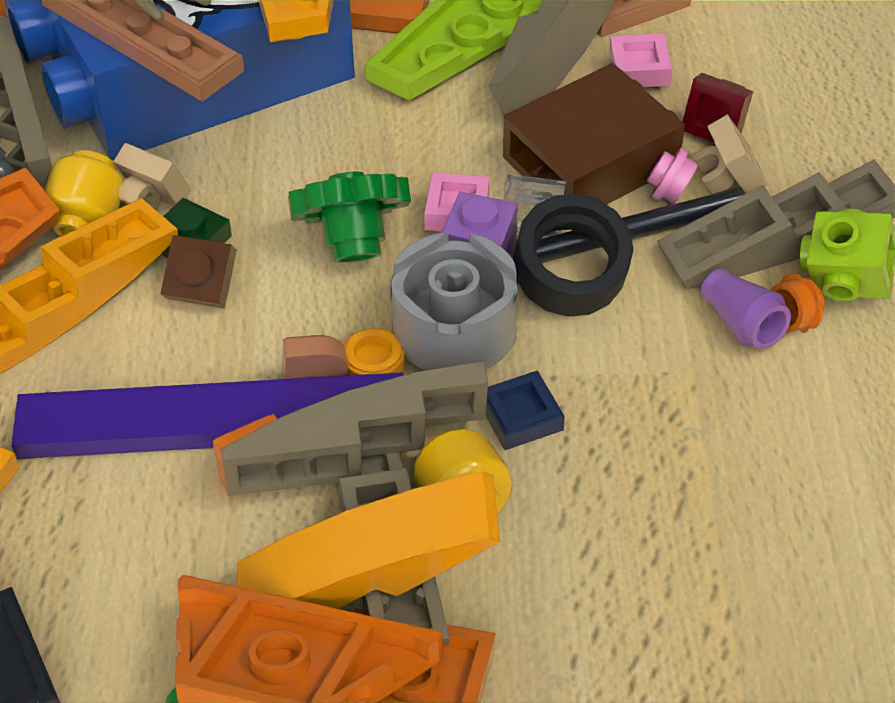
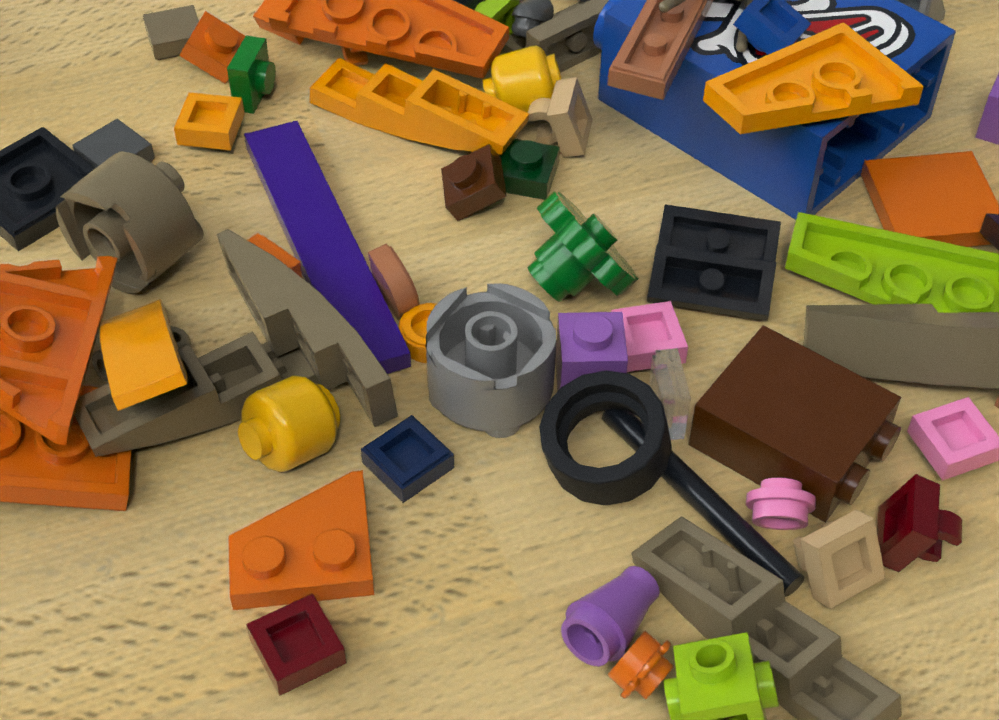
camera: 70 degrees right, 0 degrees up
(129, 549) = (131, 214): none -> dark tan brick
(383, 136) = (715, 262): none -> black slope
(600, 505) = (305, 549): none -> orange wing
(713, 527) = (296, 644): none -> dark red plate

